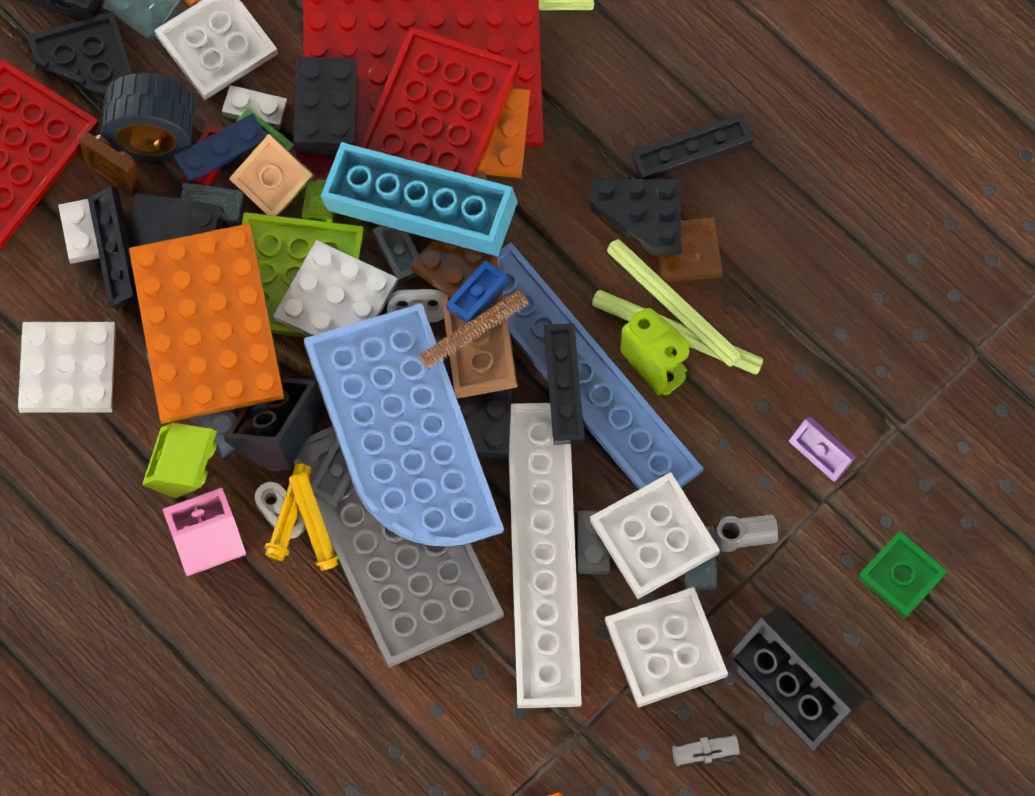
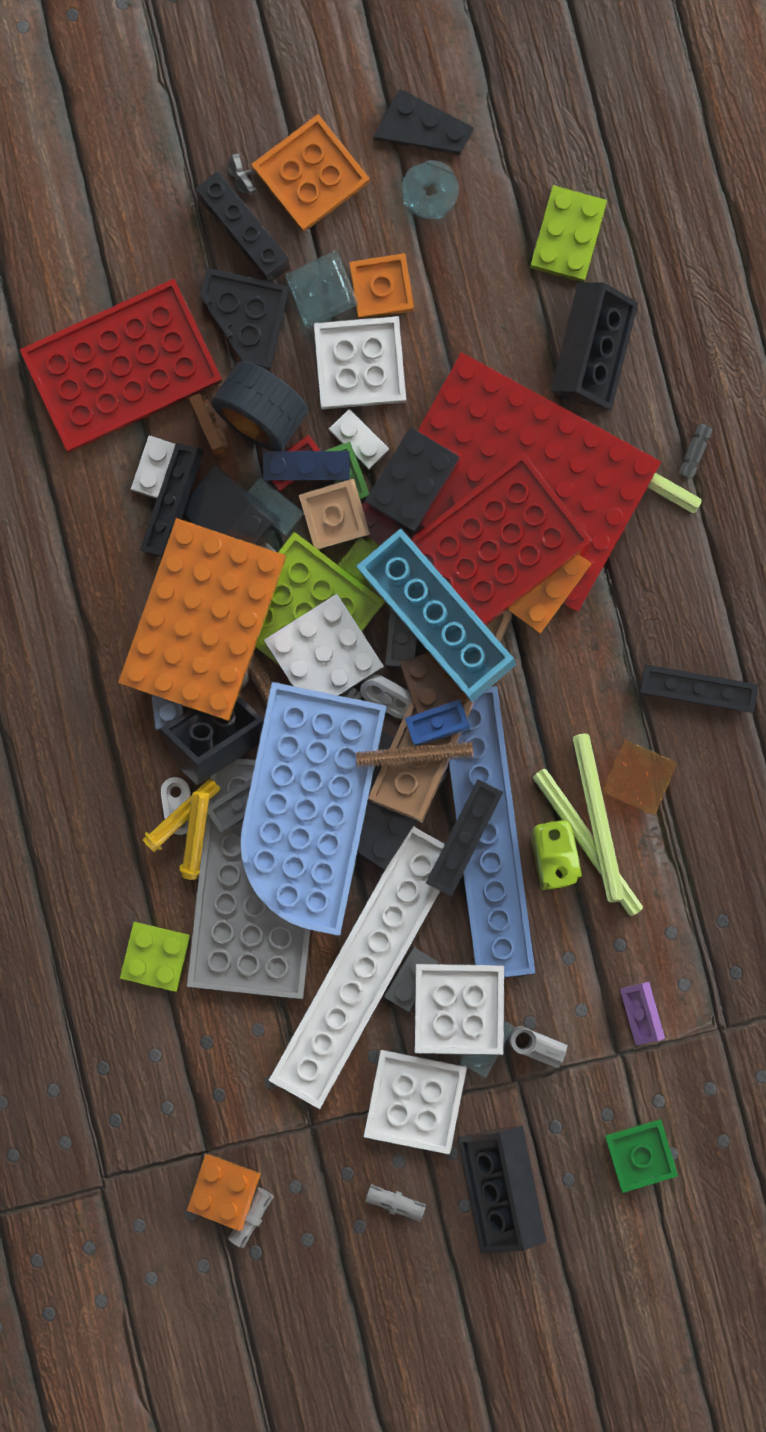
camera: 30 degrees right, 15 degrees up
(67, 367) = (78, 581): white plate -> none
(180, 459) = (119, 721): lime slope -> none
(204, 531) = (105, 791): bright pink slope -> none
(341, 658) = (155, 956): none -> lime plate
(642, 210) = (621, 723): black plate -> none

